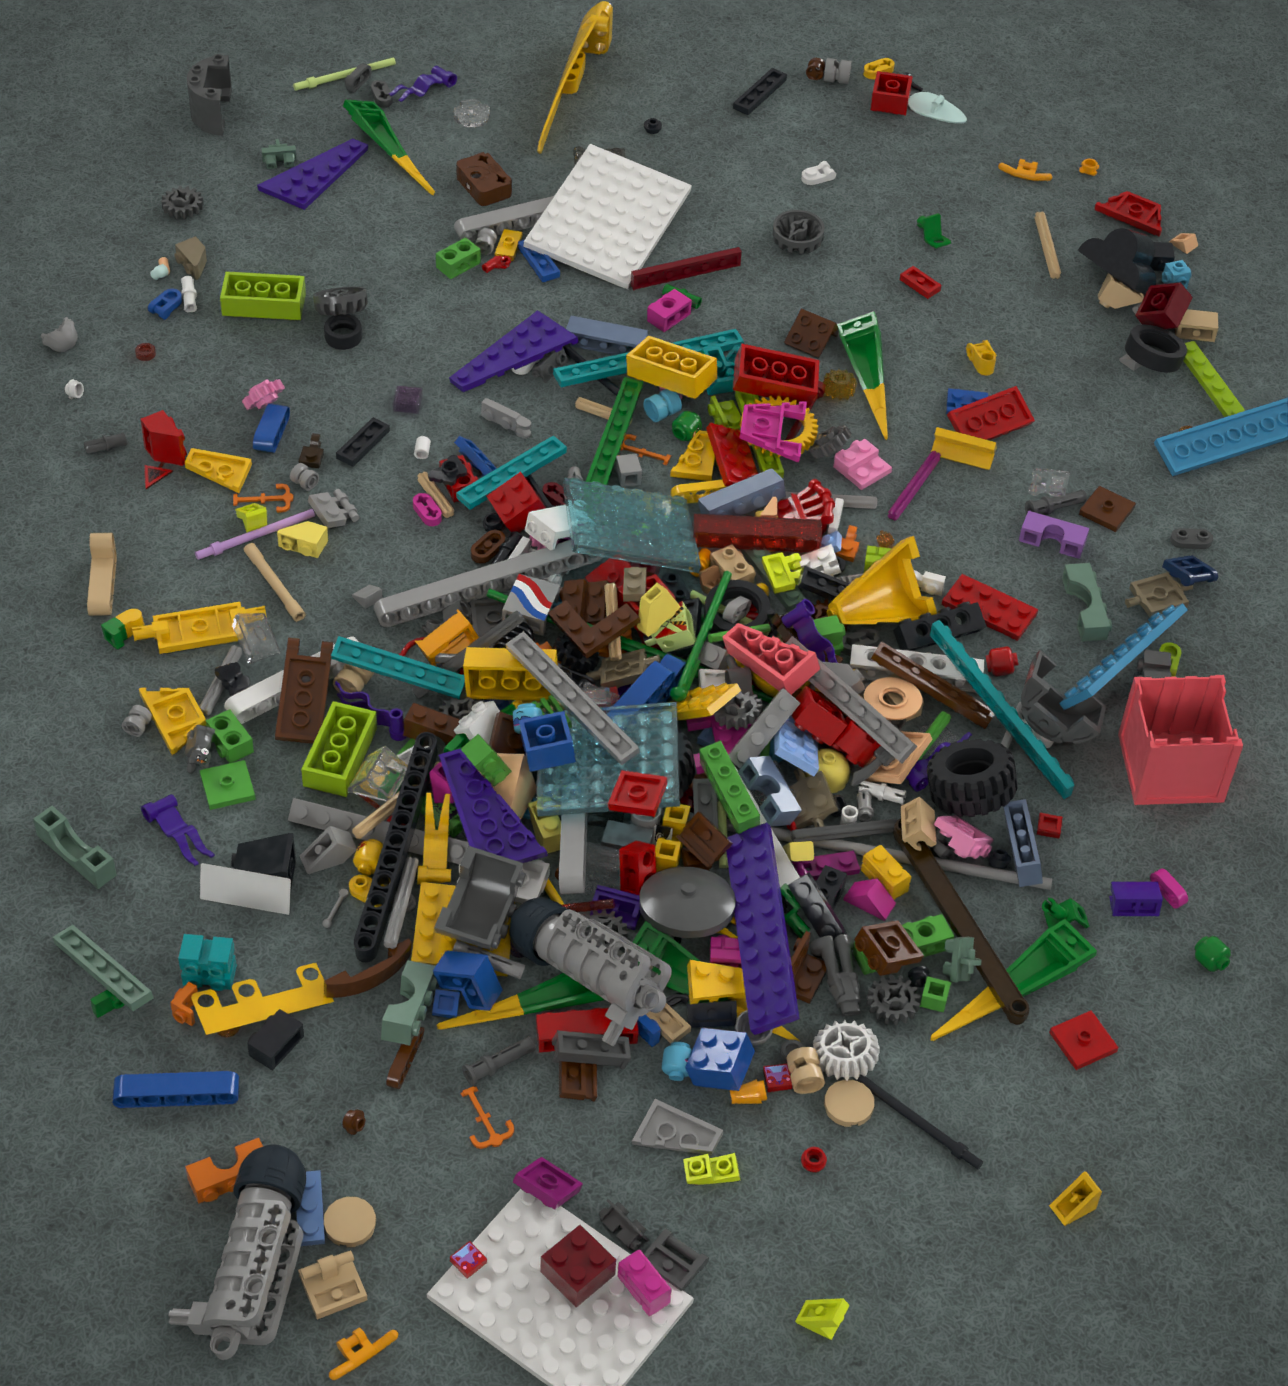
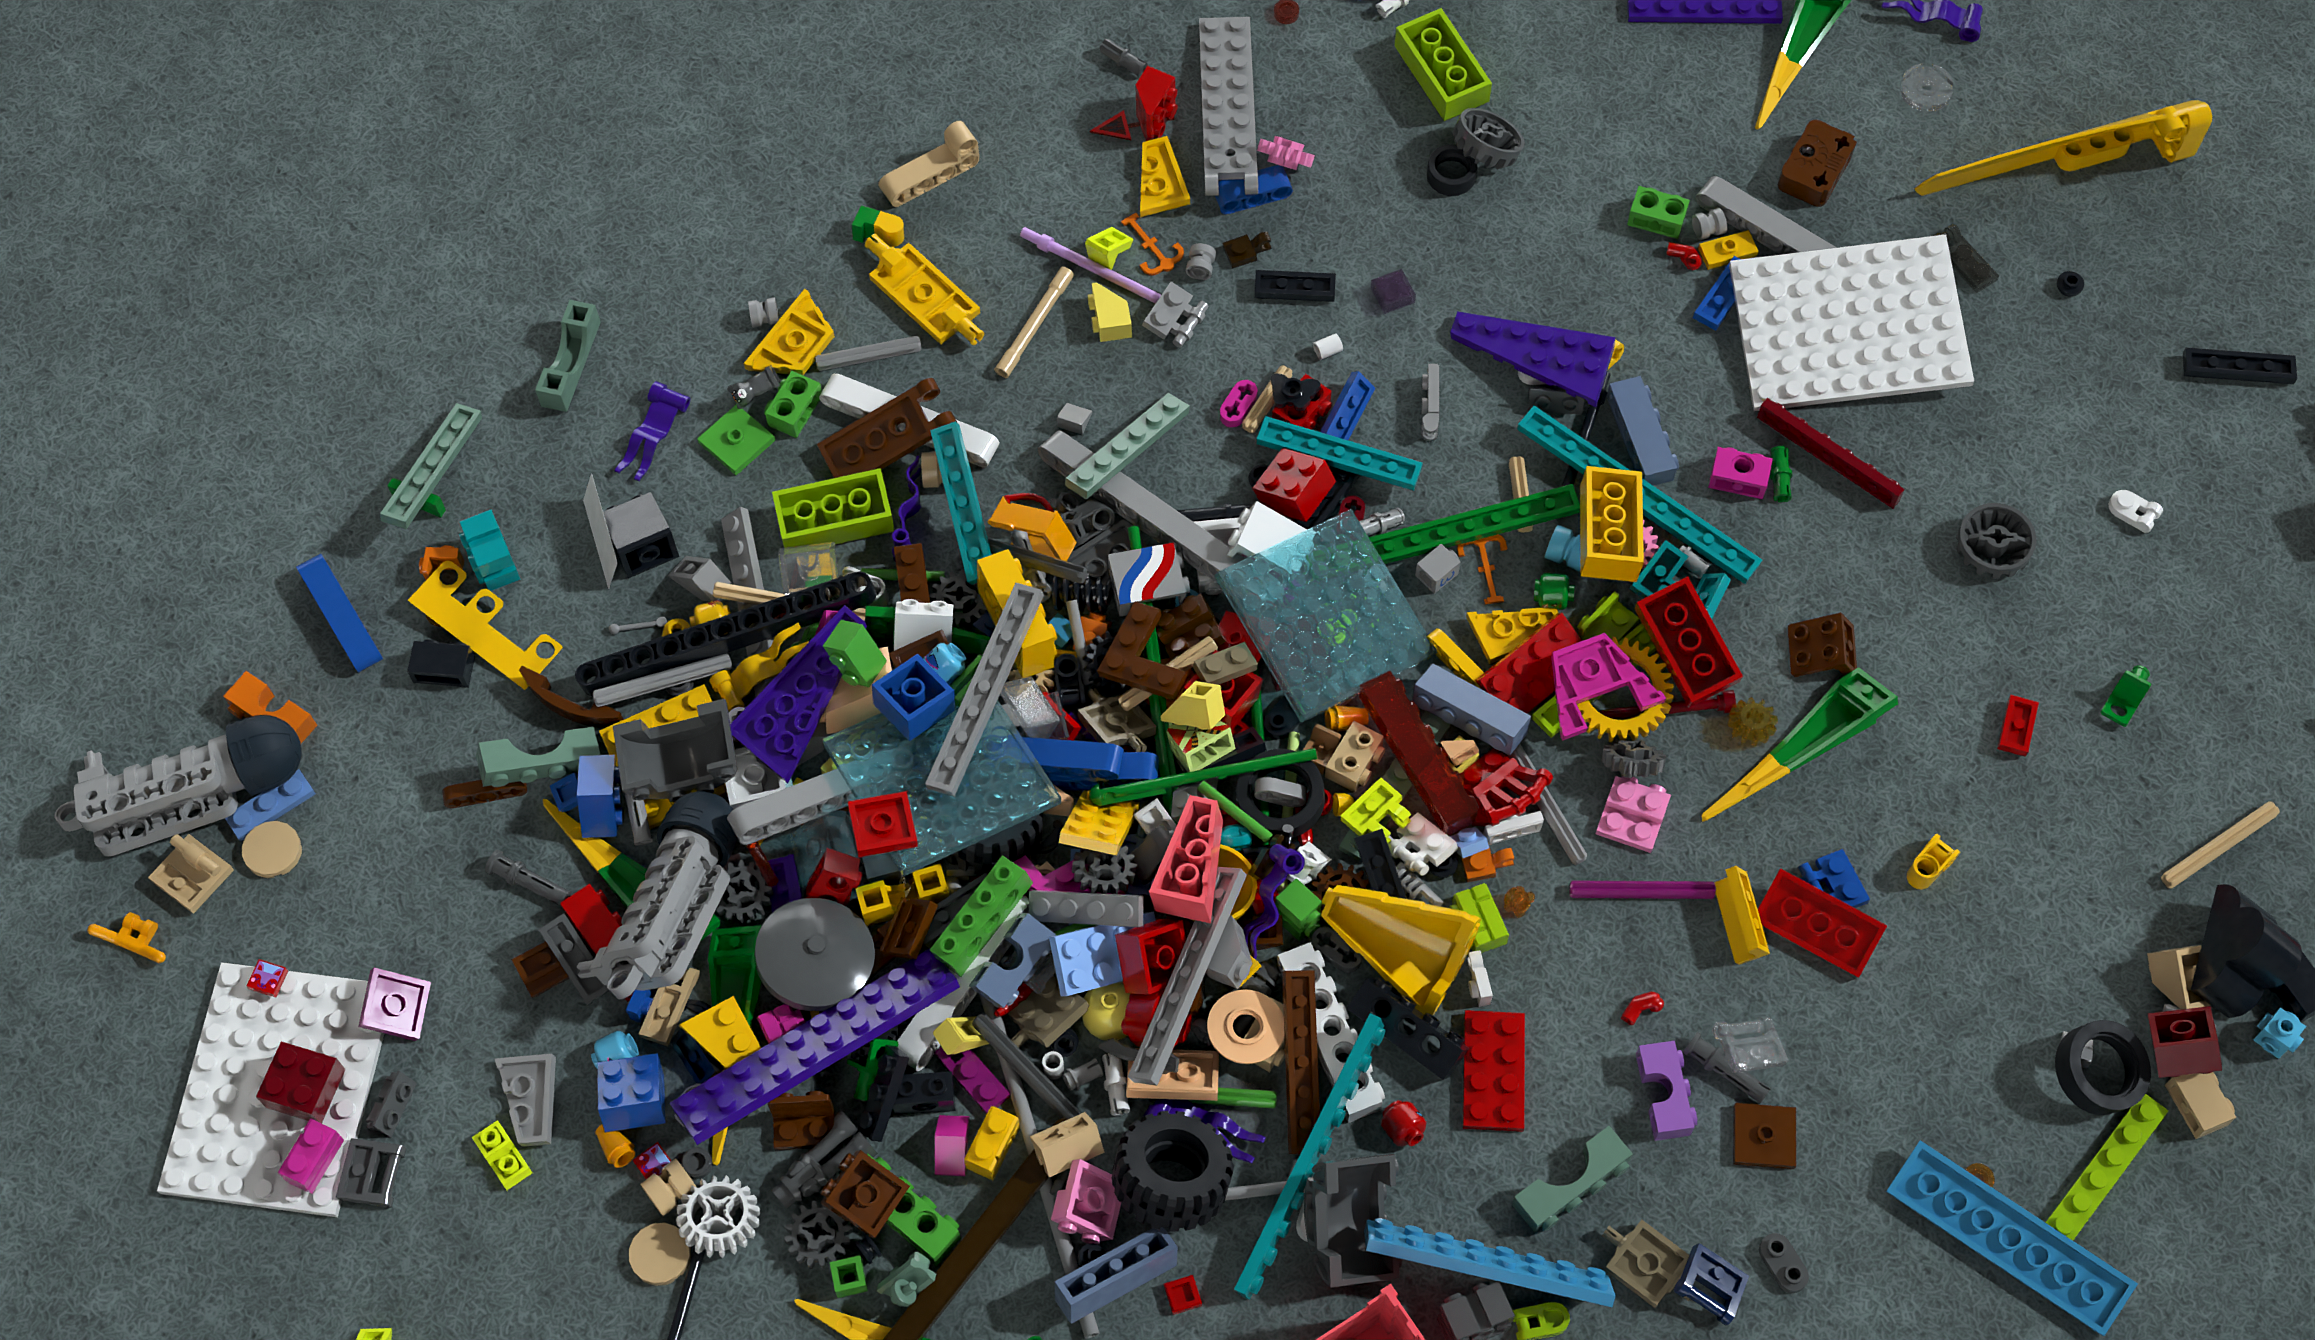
camera: 65 degrees right, 15 degrees up
(197, 407) = (1227, 103): none -> light grey hinge
(232, 678) = (869, 353): black animal -> none
(255, 636) = (934, 348): clear slope -> none
(354, 1121) = (383, 788): reddish brown plate -> none
(420, 570) = (1127, 446): none -> sand green plate
(485, 549) = (1221, 489): reddish brown plate -> none
(495, 1139) = (435, 929): orange piece -> none
(816, 1153) = (560, 1245): red plate -> none
(989, 521) = (1641, 1002): none -> red arm

